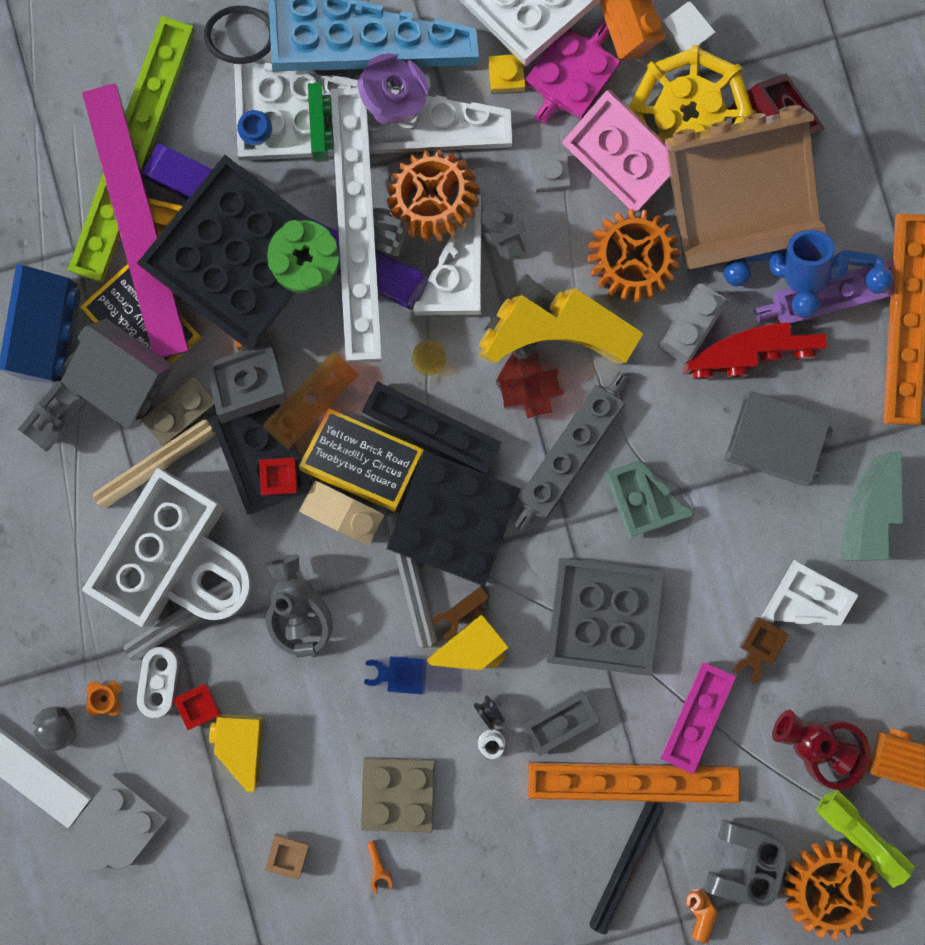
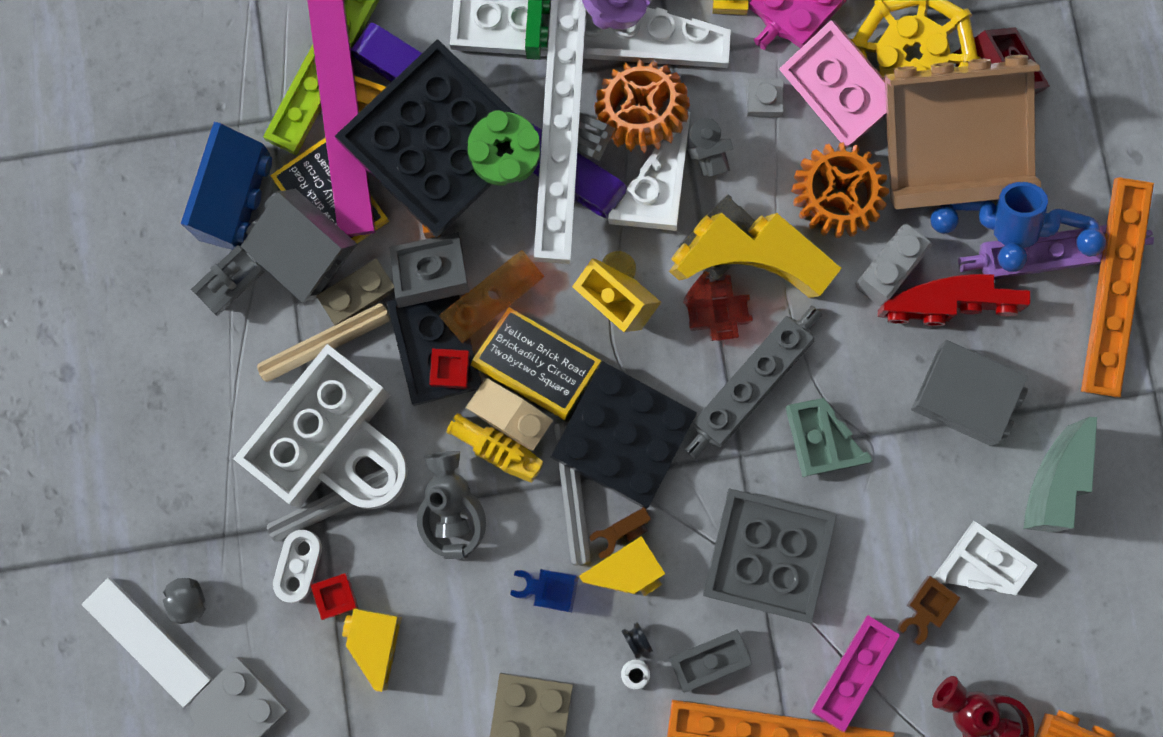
camera: 10 degrees right, 5 degrees down
(96, 705) = (231, 569): orange plate -> none
(254, 127) = (470, 17): blue plate -> none
(333, 546) = (496, 448): none -> yellow hinge
(430, 386) = (616, 296): none -> yellow slope
(431, 427) = (623, 348): black plate -> none

